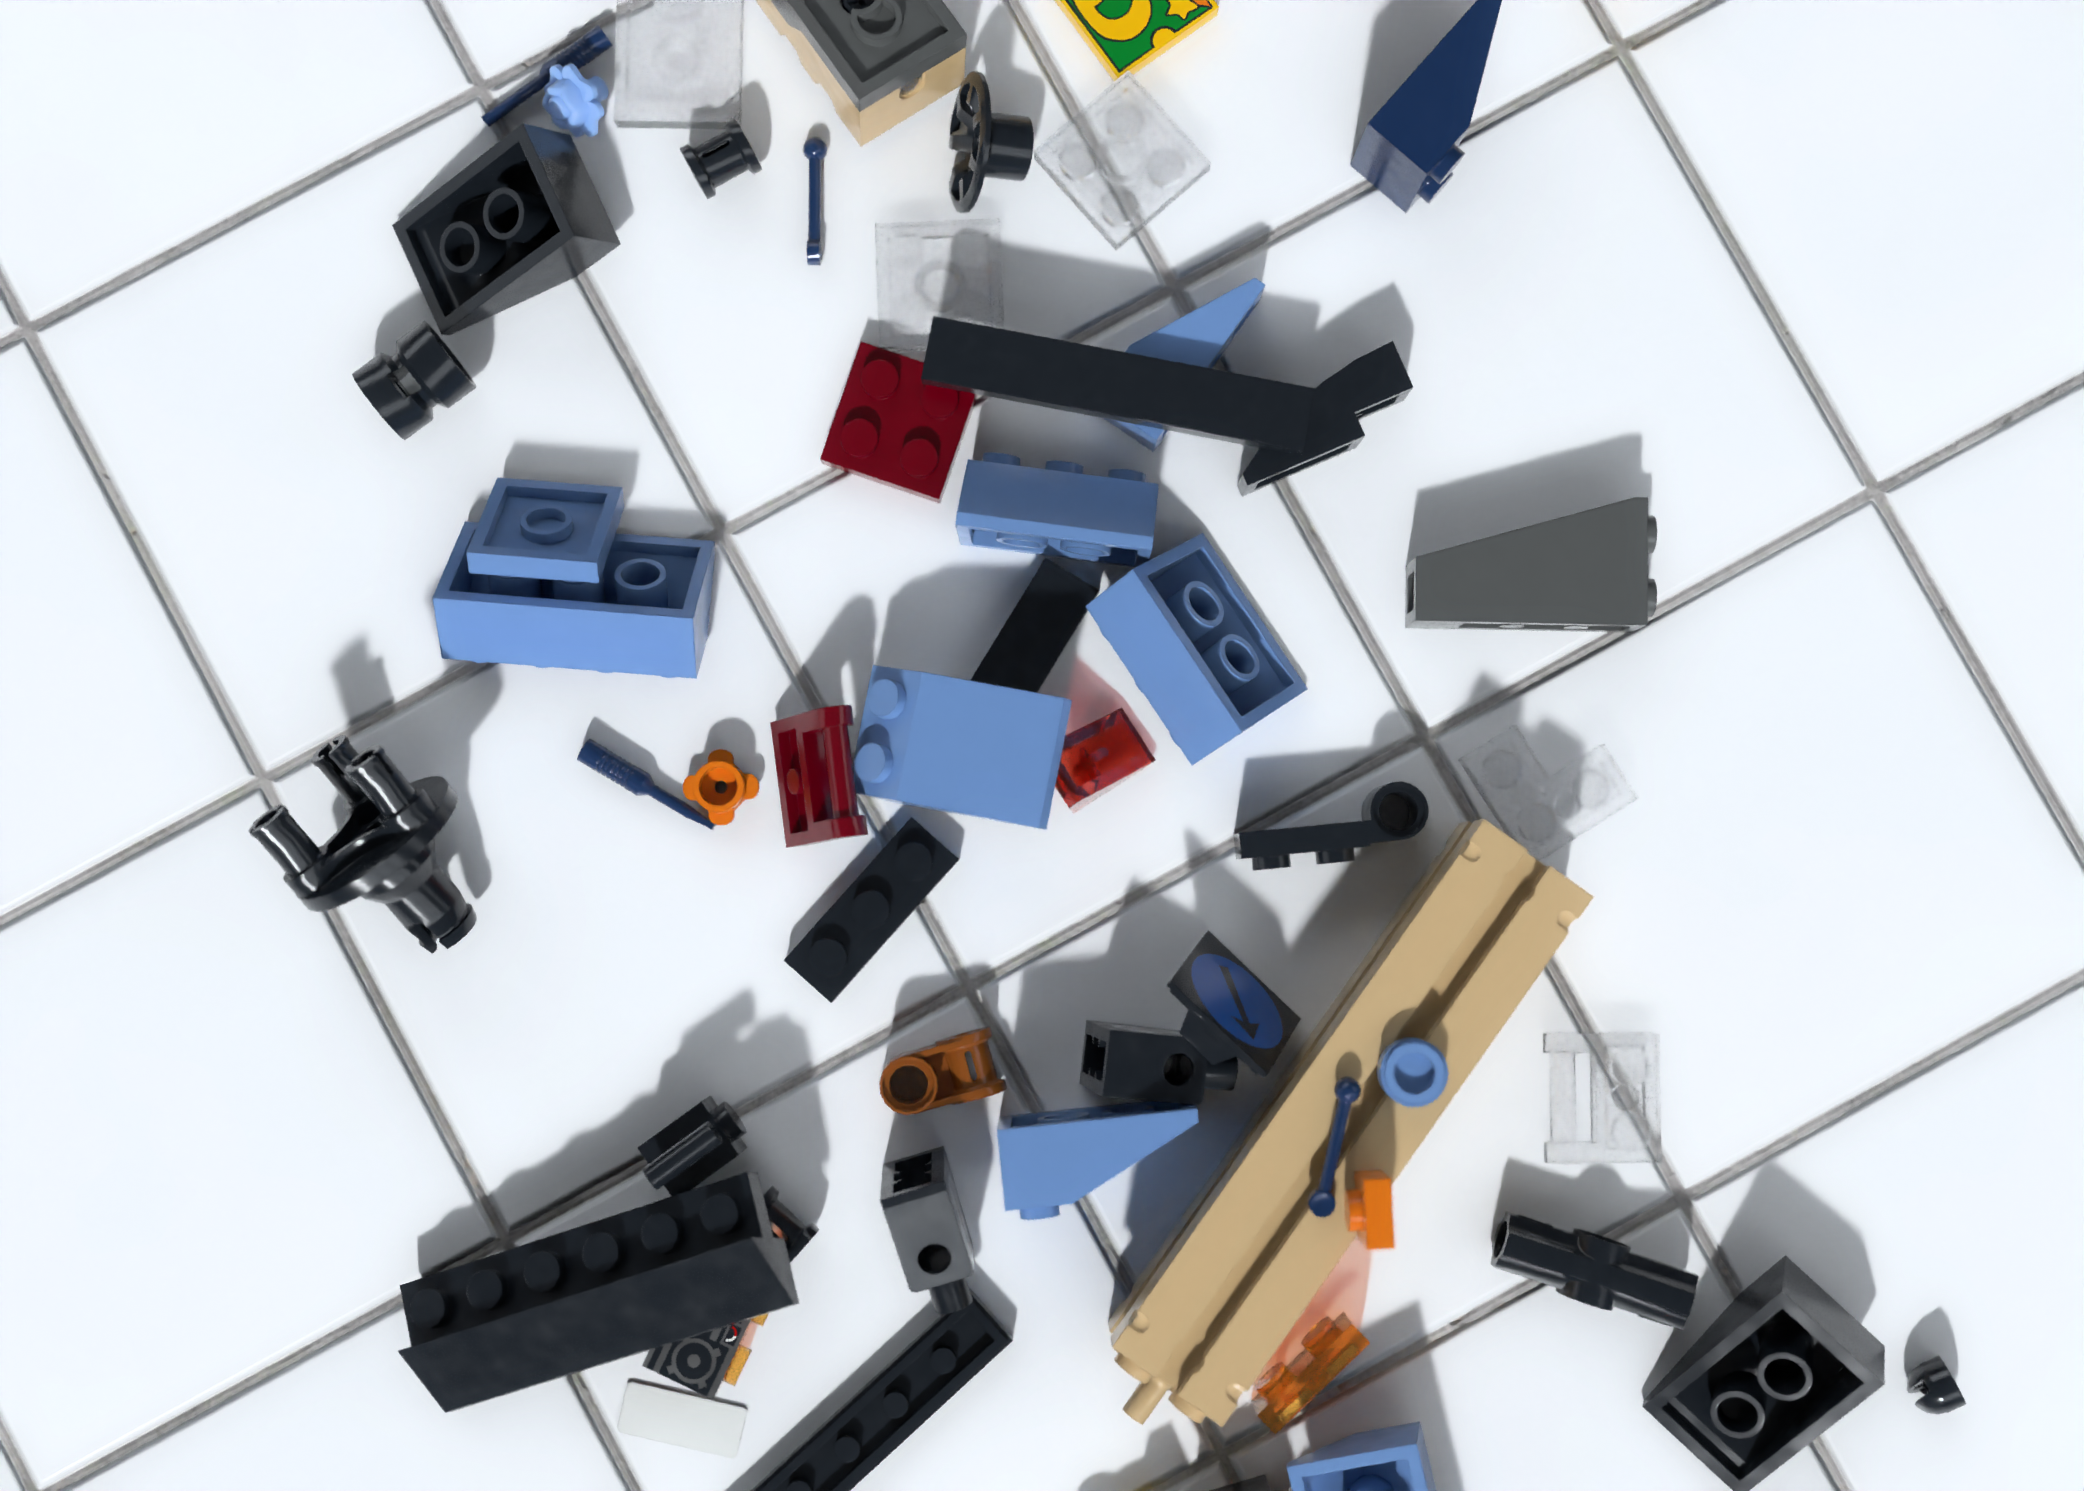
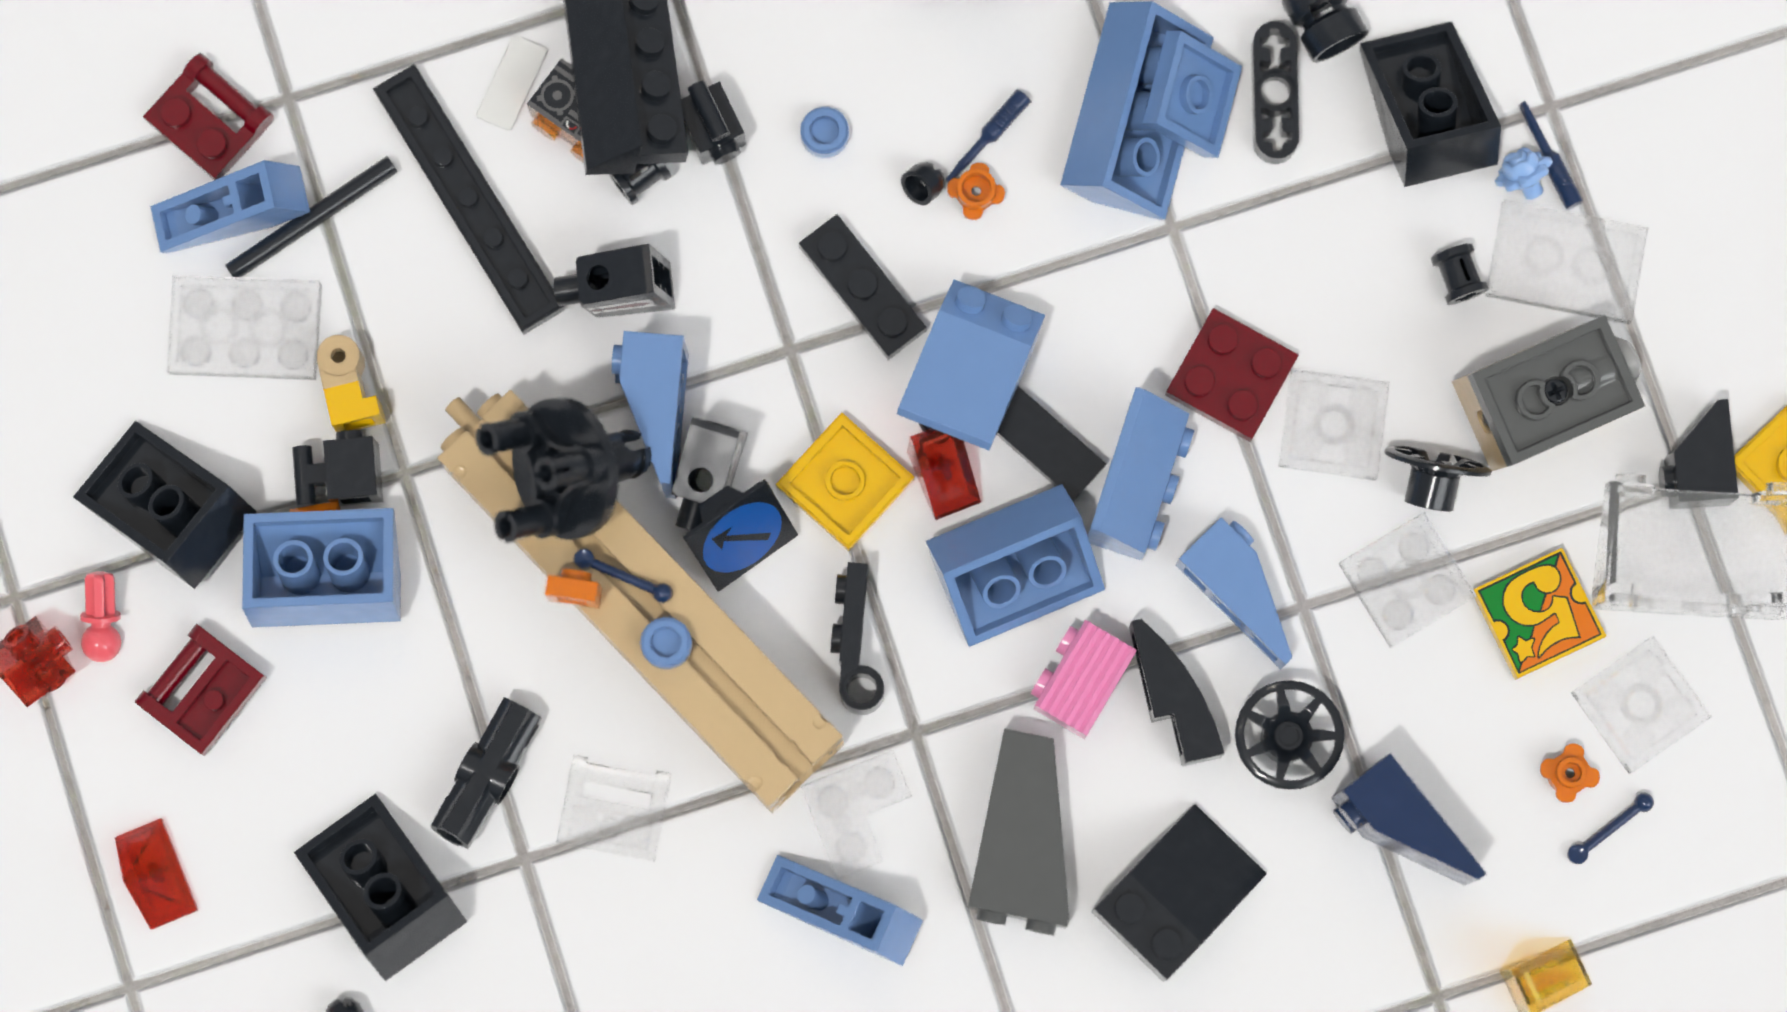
camera: 100 degrees right, 5 degrees down
(482, 455) = (1287, 58): none -> black beam
(677, 997) = (824, 132): none -> medium blue tile
(723, 857) = (913, 181): none -> black hinge
(814, 150) = (1456, 348): dark blue hinge -> none
(817, 776) = (969, 260): dark red plate -> none
(946, 1073) = (729, 322): dark orange piece -> none
(1117, 385) = (1224, 534): black tile -> none
(1128, 884) = (845, 481): none -> yellow tile
(1219, 1258) = (562, 469): none -> black piece
(1289, 1388) = (469, 560): clear orange plate -> none
(1326, 537) = (1083, 678): none -> bright pink brick
(1350, 267) = (1289, 735): none -> black wheel
(1570, 373) = (1179, 893): none -> black slope
(1677, 785) = (840, 910): none -> medium blue slope

